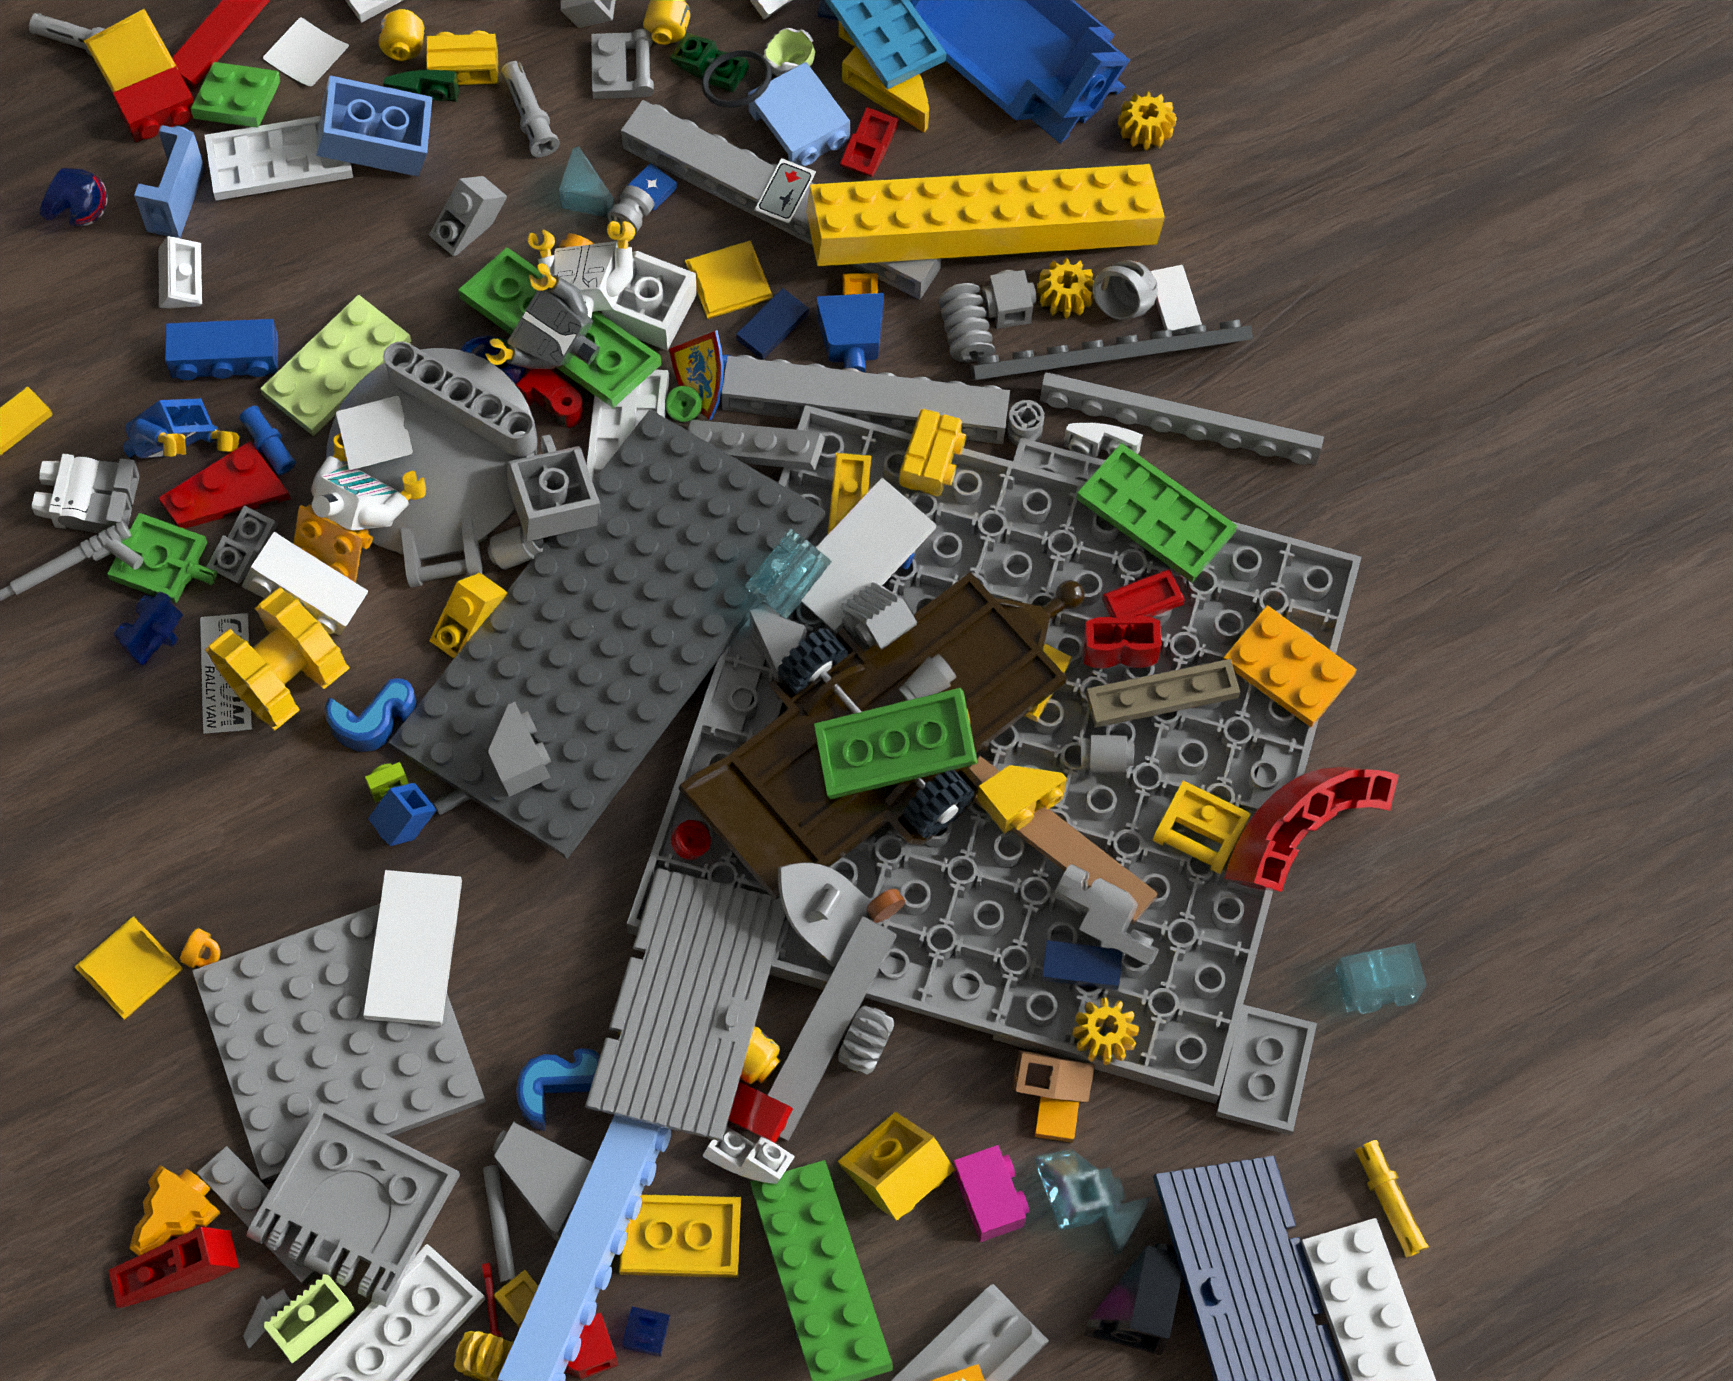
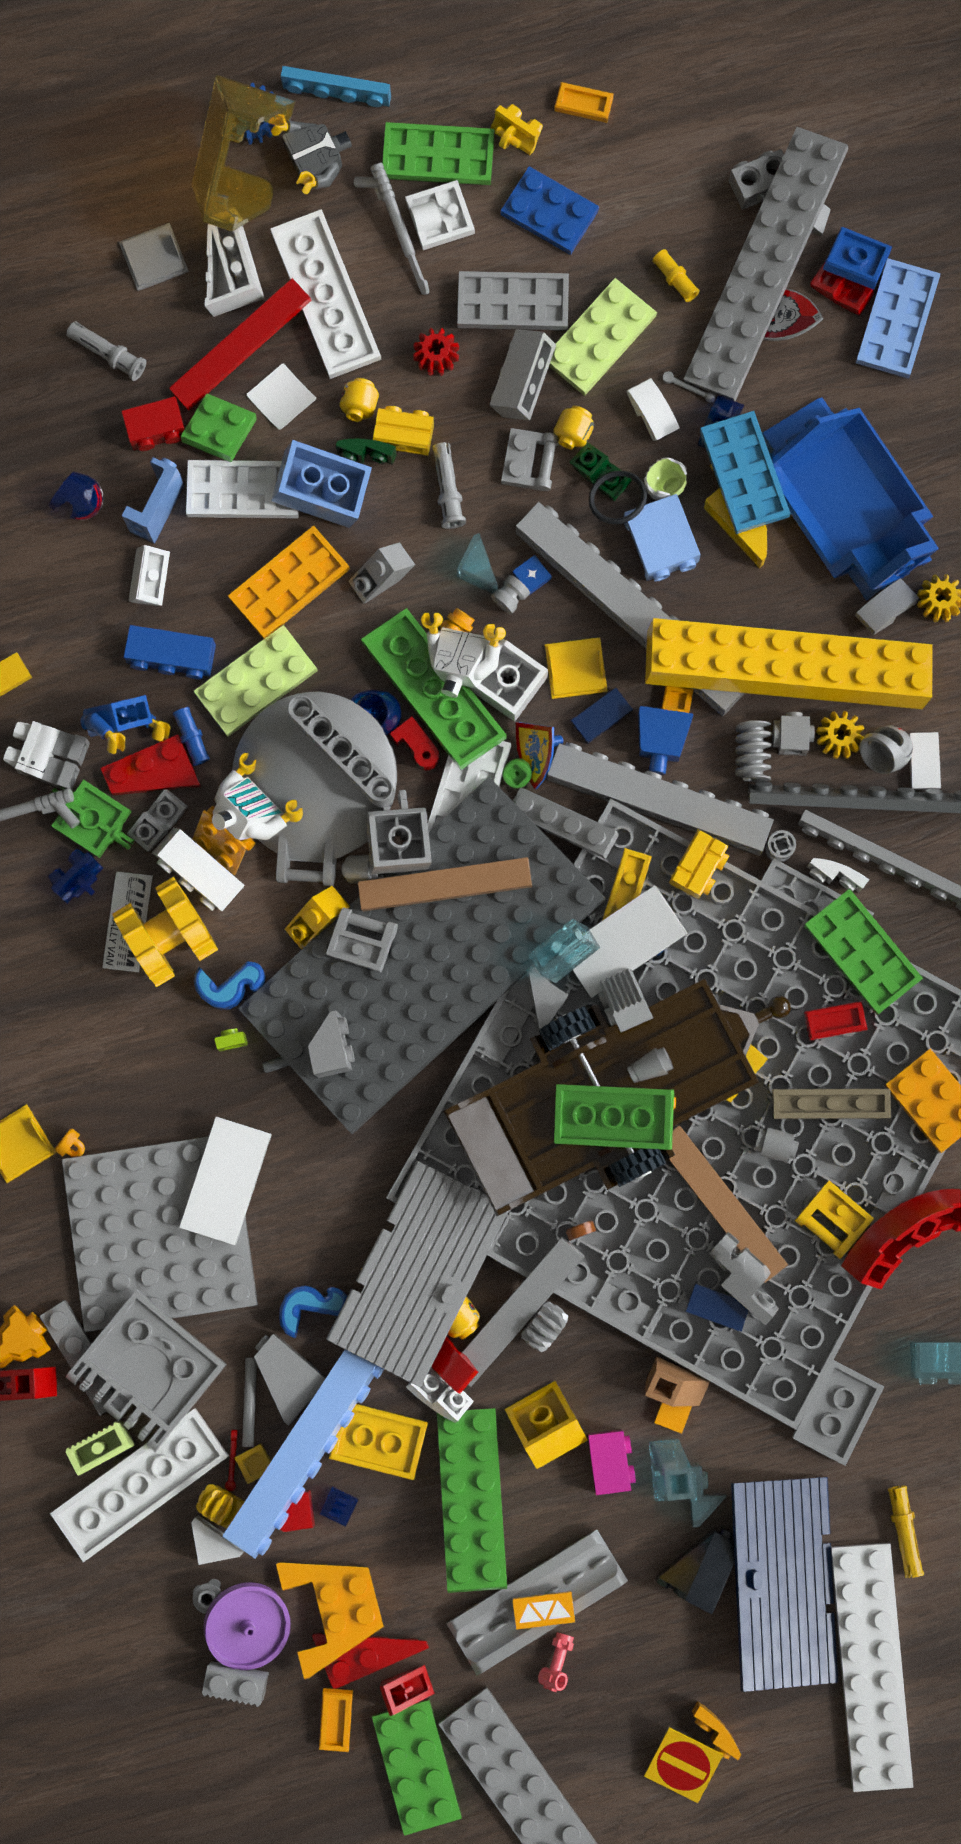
camera: 20 degrees right, 15 degrees up
(129, 51) = (142, 376): yellow piece -> none
(262, 1313) = (69, 1433): light grey bar -> none
(355, 247) = (289, 582): none -> light orange plate
(374, 432) = (271, 761): white sticker -> none
(402, 814) = (237, 1072): blue brick -> none
(530, 630) = (358, 948): none -> light grey plate
(550, 327) = (422, 702): dark grey torso -> none
(621, 536) = (445, 884): none -> medium nougat tile
(690, 839) = (446, 1145): red tile -> none
(785, 190) = (635, 607): sticker -> none
(821, 907) = (532, 1225): light grey shield -> none
(870, 142) = (713, 571): red slope -> none
(1018, 793) = (700, 1166): yellow slope -> none
(1083, 141) = (886, 606): none -> light grey slope
(1115, 1041) = (722, 1376): yellow gear -> none
(1127, 642) = (817, 1061): red brick -> none

